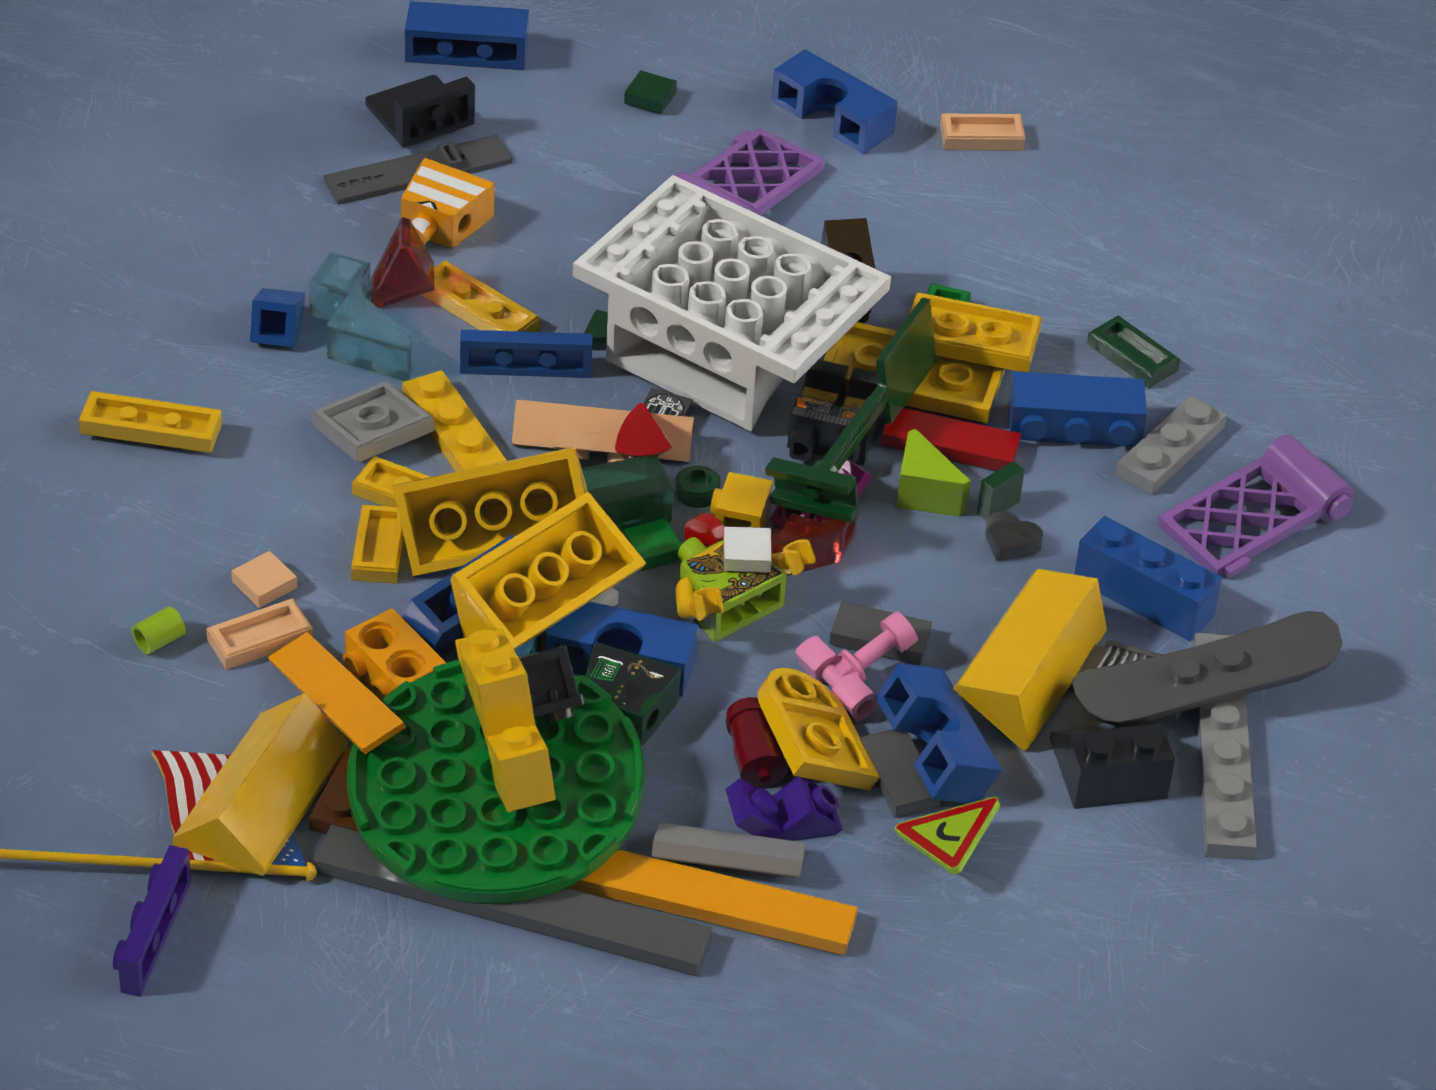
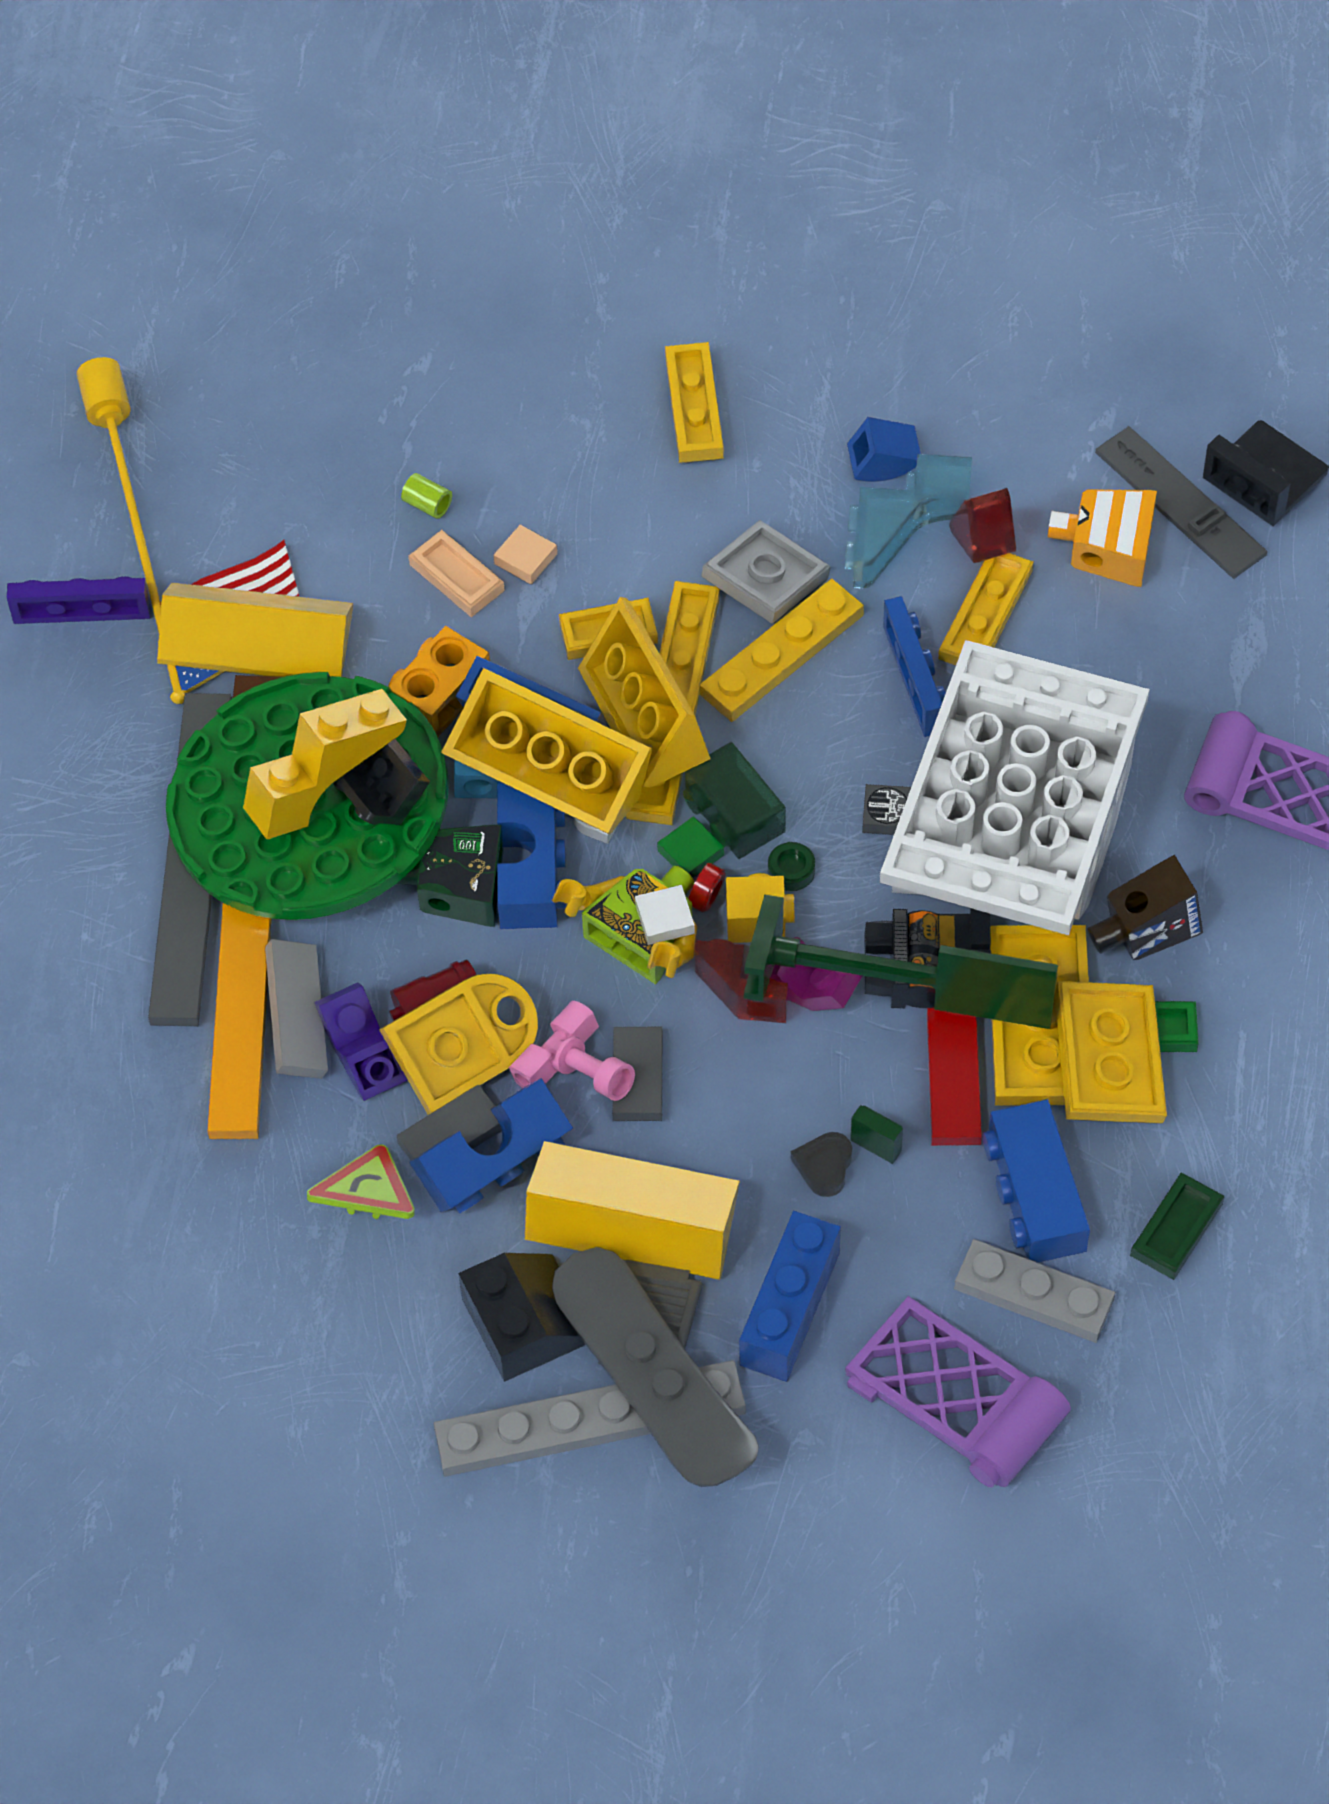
camera: 80 degrees right, 15 degrees up
(337, 692) = (374, 644): light orange piece -> none
(591, 429) = (817, 762): light nougat bracket -> none
(641, 435) = (809, 790): red tile -> none
(930, 480) = (872, 1057): lime slope -> none

